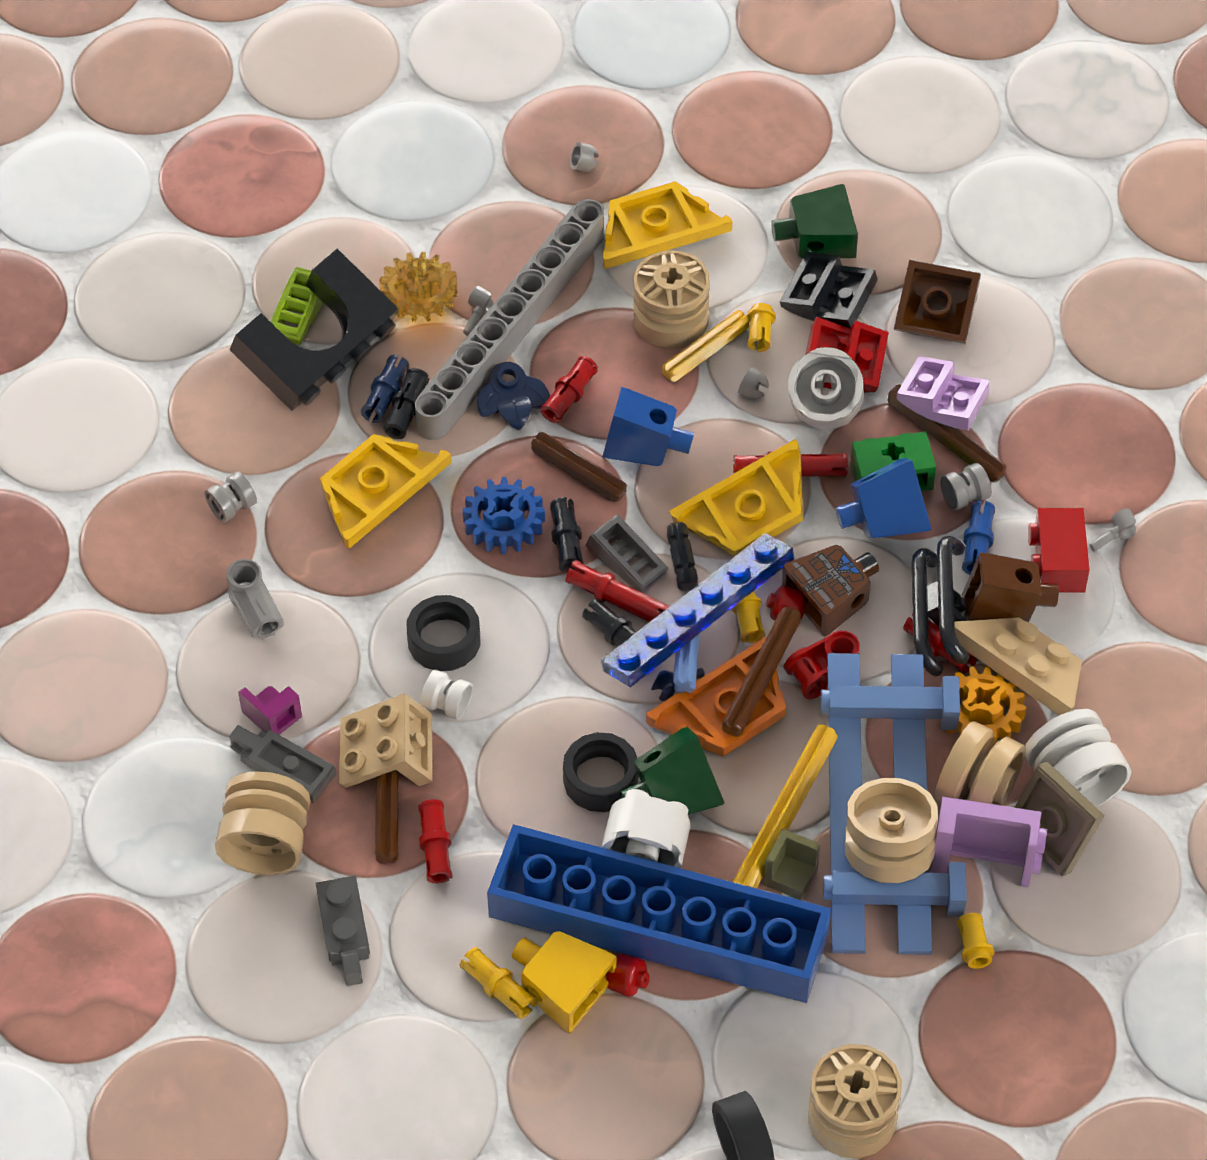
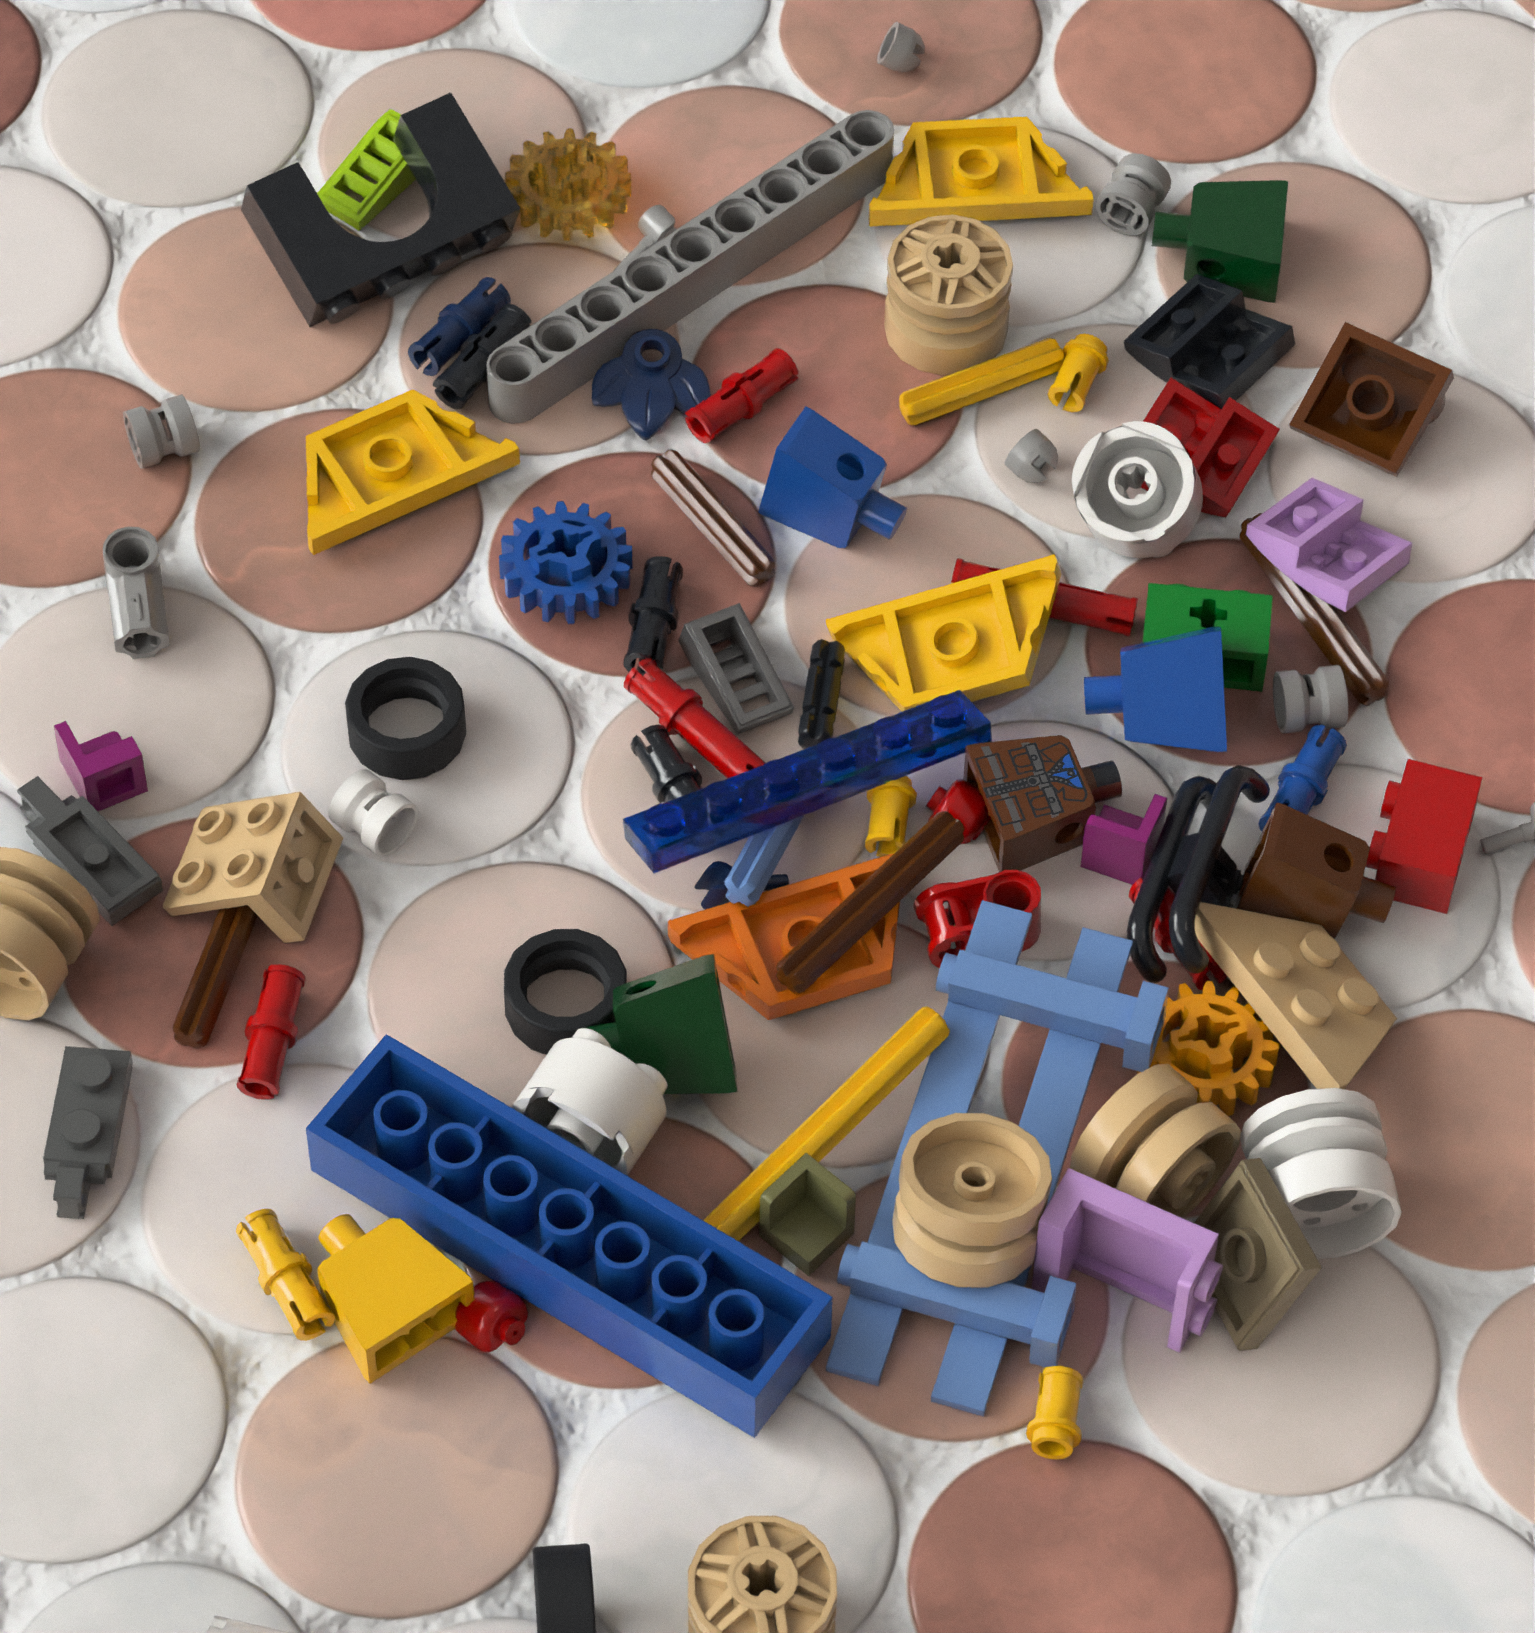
camera: 15 degrees right, 0 degrees up
(754, 213) = (1135, 191): none -> light grey wheel
(890, 598) = (1122, 842): none -> magenta panel

